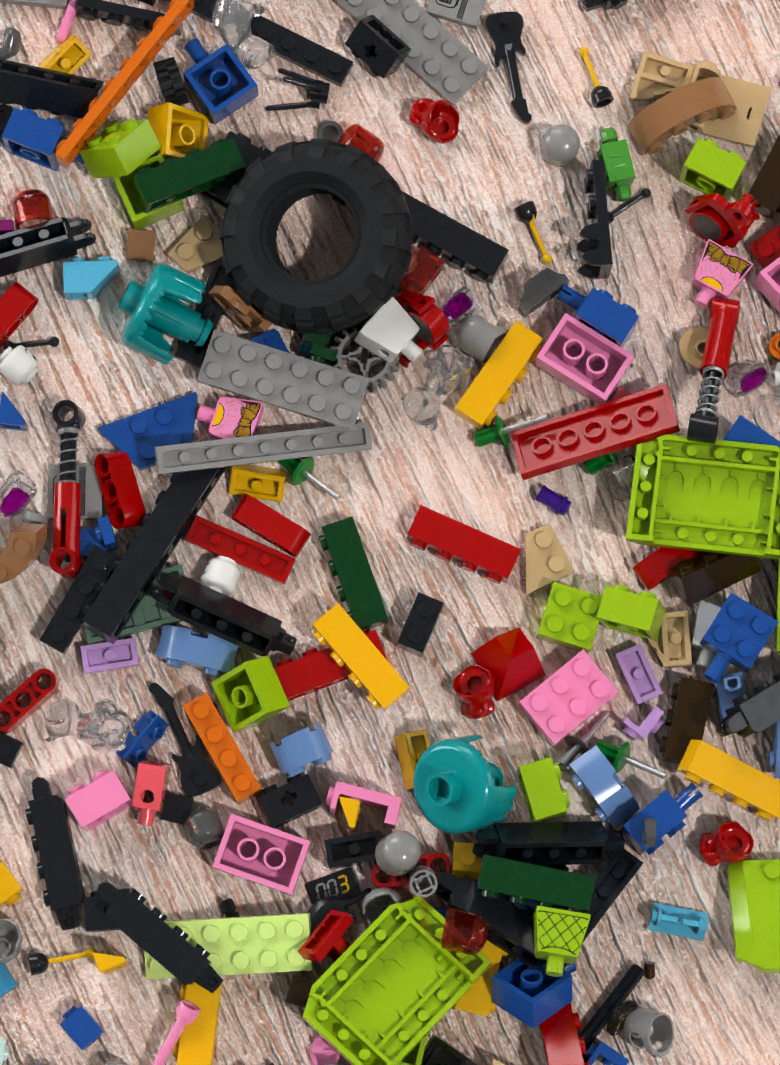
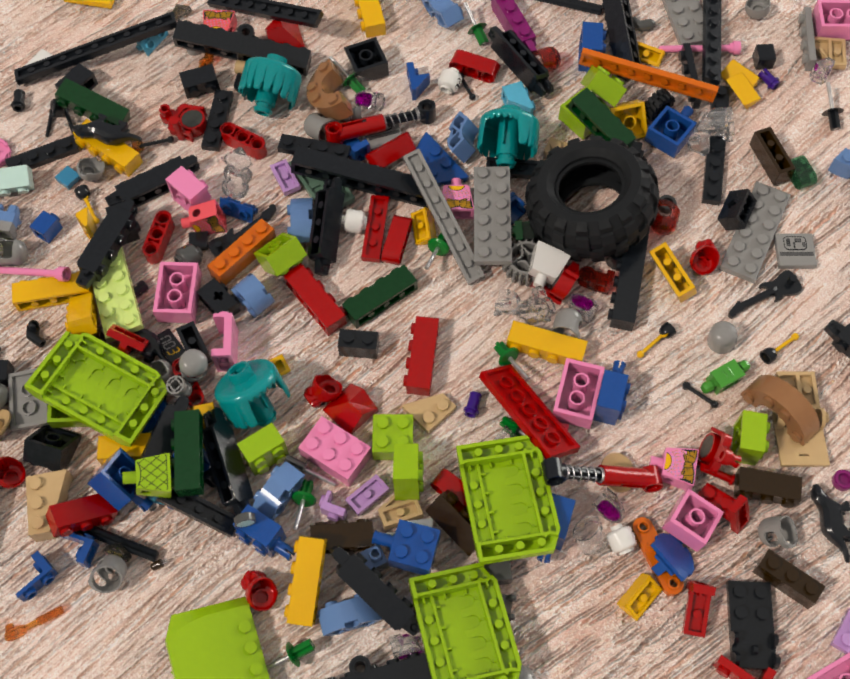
camera: 75 degrees right, 15 degrees down
(41, 585) = (313, 126): none -> light grey helmet
(130, 380) = (462, 137): none -> medium blue brick
(141, 245) = (550, 122): medium nougat slope -> none
(142, 859) = (155, 244): none -> red beam
(244, 316) = (528, 176): medium nougat wing -> none
(263, 996) = (81, 314): none -> yellow brick
(316, 91) = (691, 186): black plant -> none
(351, 811) = (215, 333): yellow slope -> none
(360, 657) = (321, 307): yellow brick -> none
(447, 170) = (673, 272): none -> yellow brick
(464, 932) = (144, 420): clear red helmet -> none
(541, 289) = (615, 349): dark grey slope -> none
(596, 236) = (675, 375): black hinge -> none
(678, 921) = (196, 573): medium azure hinge -> none

